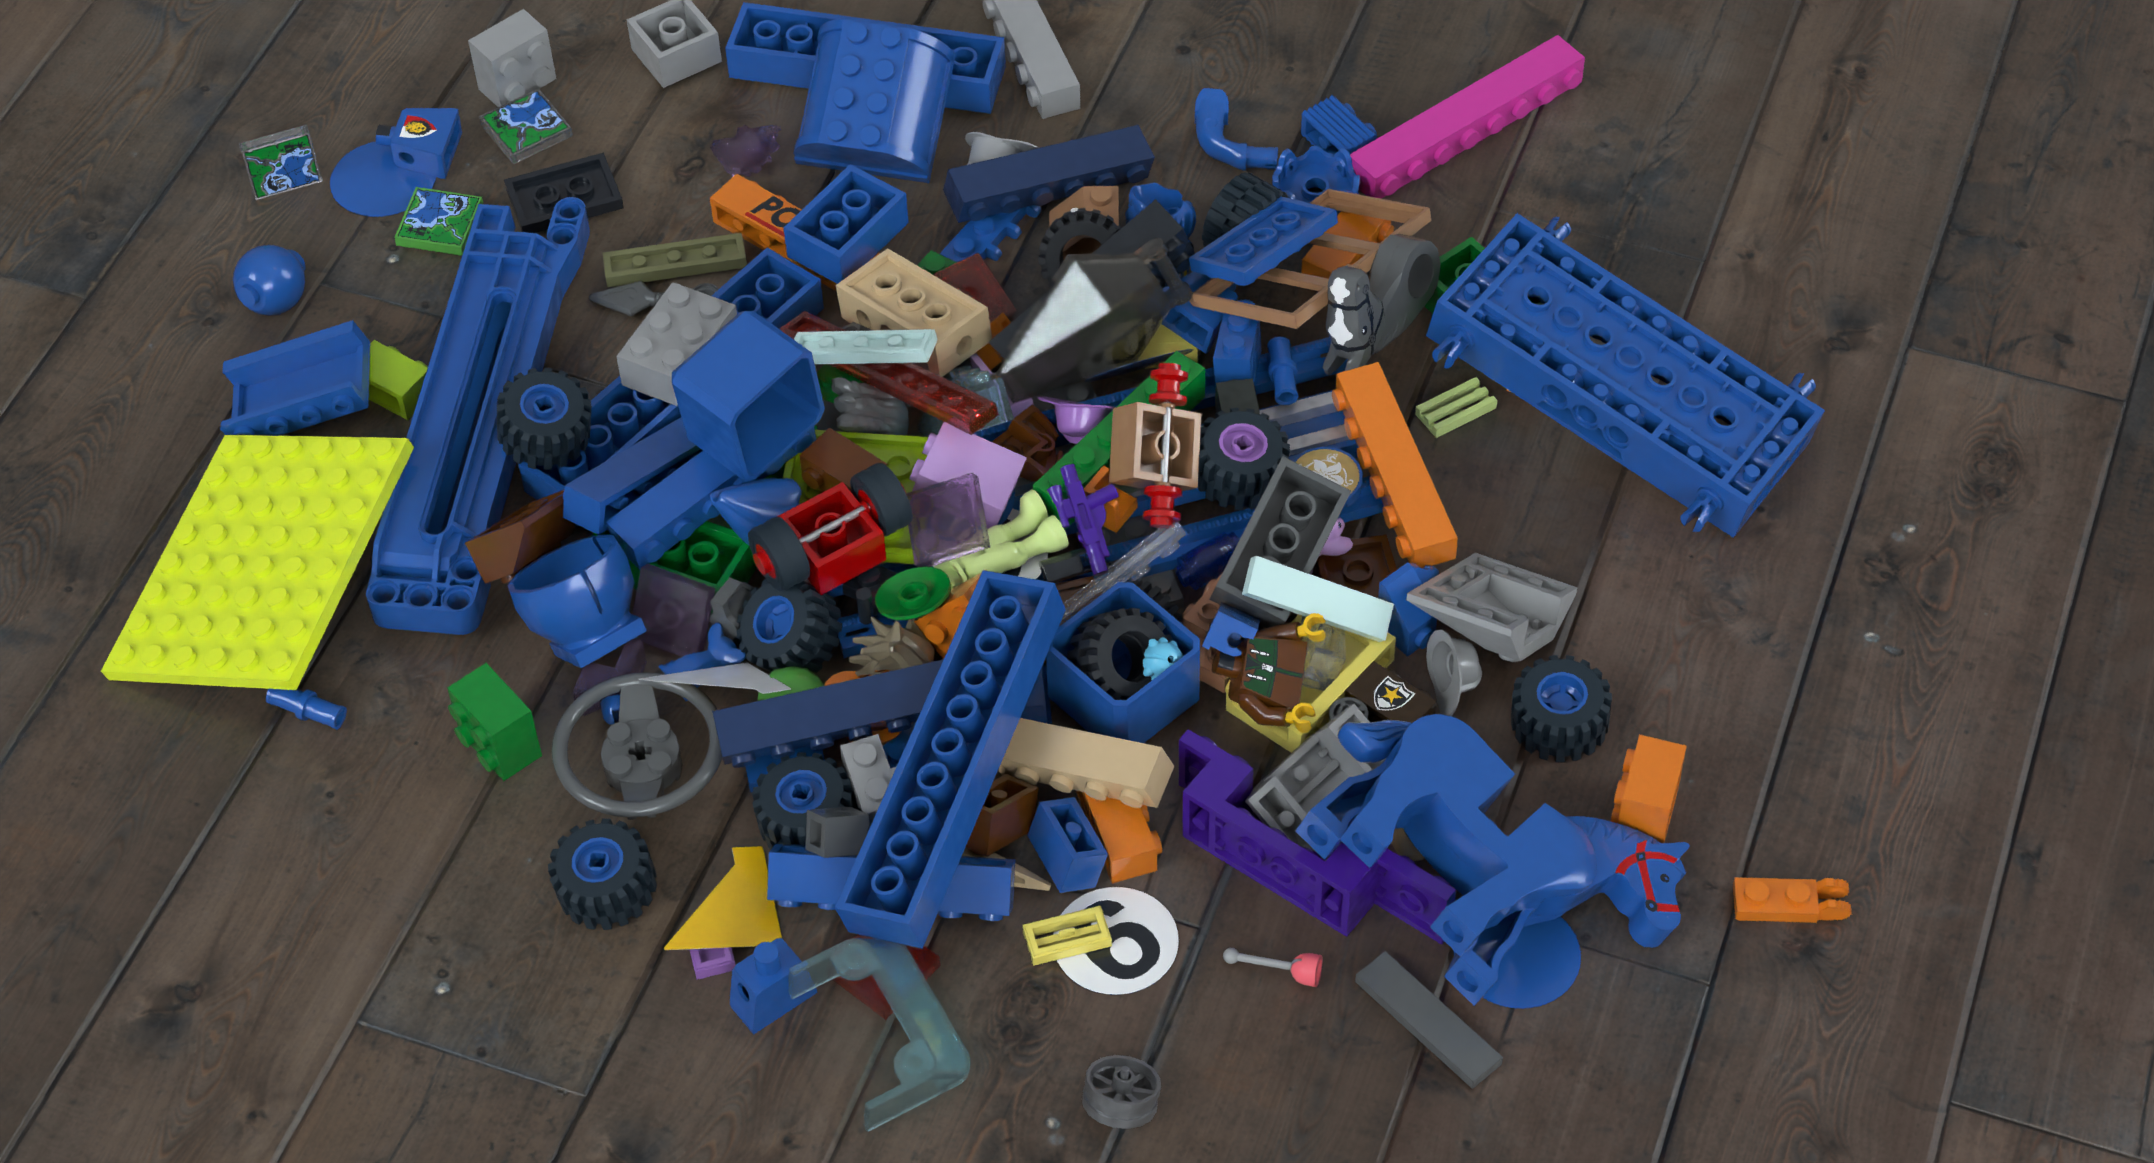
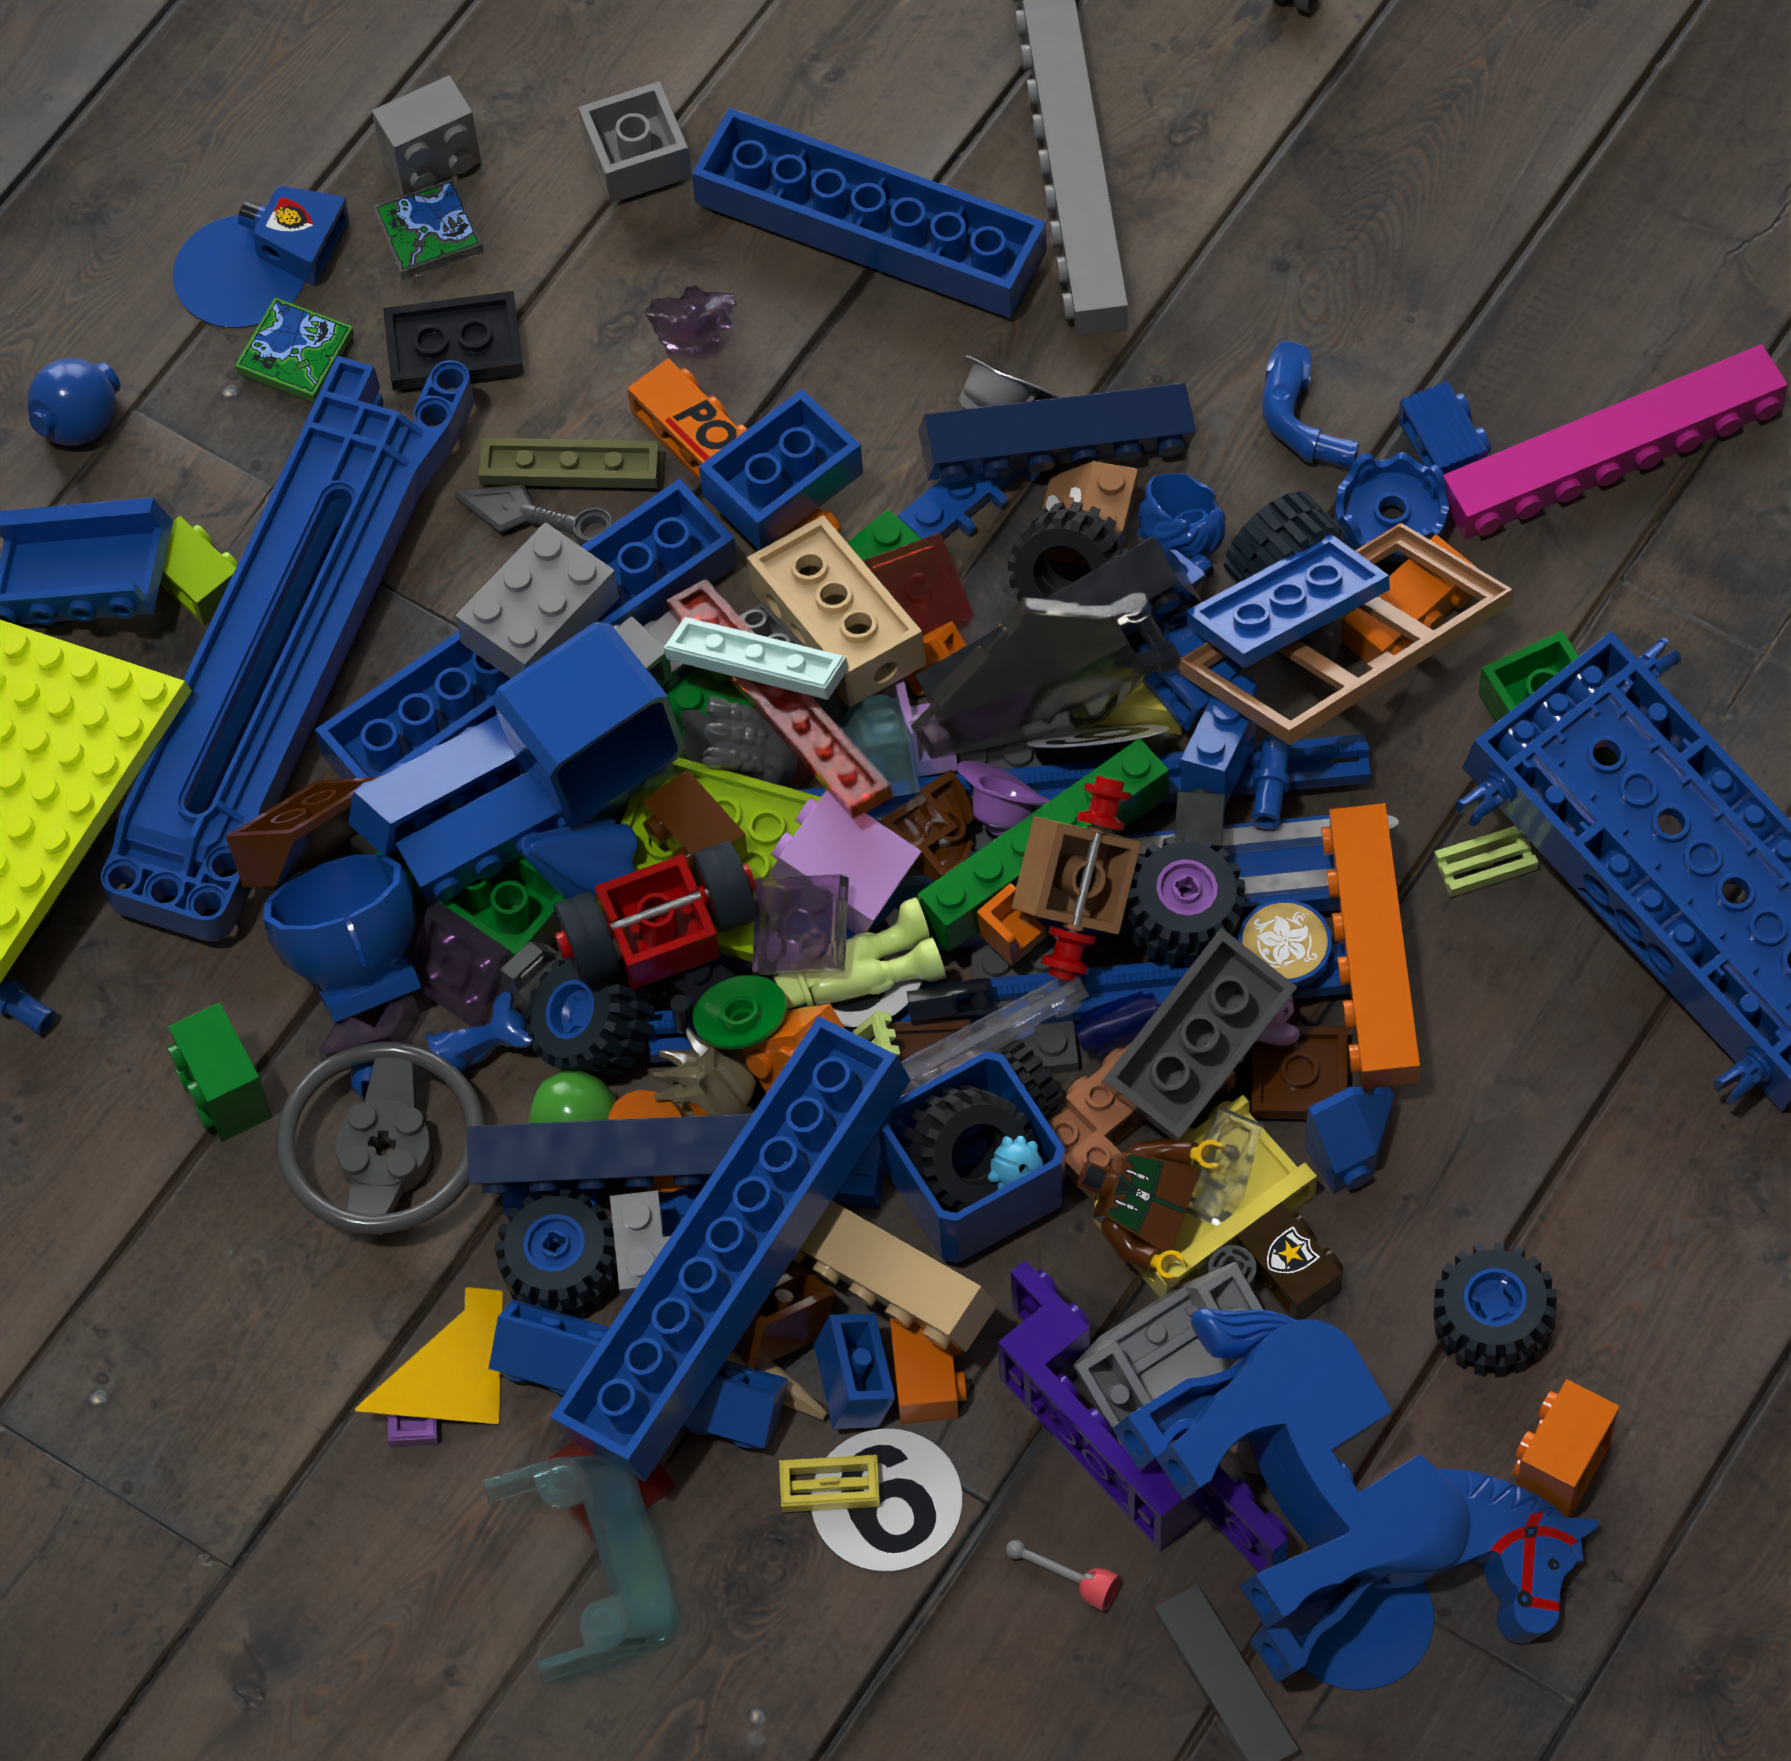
camera: 15 degrees right, 10 degrees up
(280, 162) = (114, 236): tile -> none
(543, 418) = (352, 681): black wheel -> none
(602, 874) = (306, 1295): black wheel -> none
(737, 676) = (507, 1072): white sticker -> none
(761, 985) = (455, 1476): blue torso -> none
(836, 831) = (582, 1305): dark grey brick -> none
(875, 100) = (861, 290): blue container -> none
(1088, 515) = (975, 948): dark purple piece -> none
(1126, 1091) = (851, 1681): flat silver wheel -> none
(1228, 627) = (1112, 1129): blue hinge -> none
(1310, 594) = (1224, 1118): light aqua tile -> none
(1376, 310) = (1444, 694): dark grey animal -> none
(1452, 668) = (1380, 1229): light grey piece -> none
(1496, 605) = (1452, 1153): light grey slope -> none
(1790, 899) = (1701, 1617): orange hinge -> none

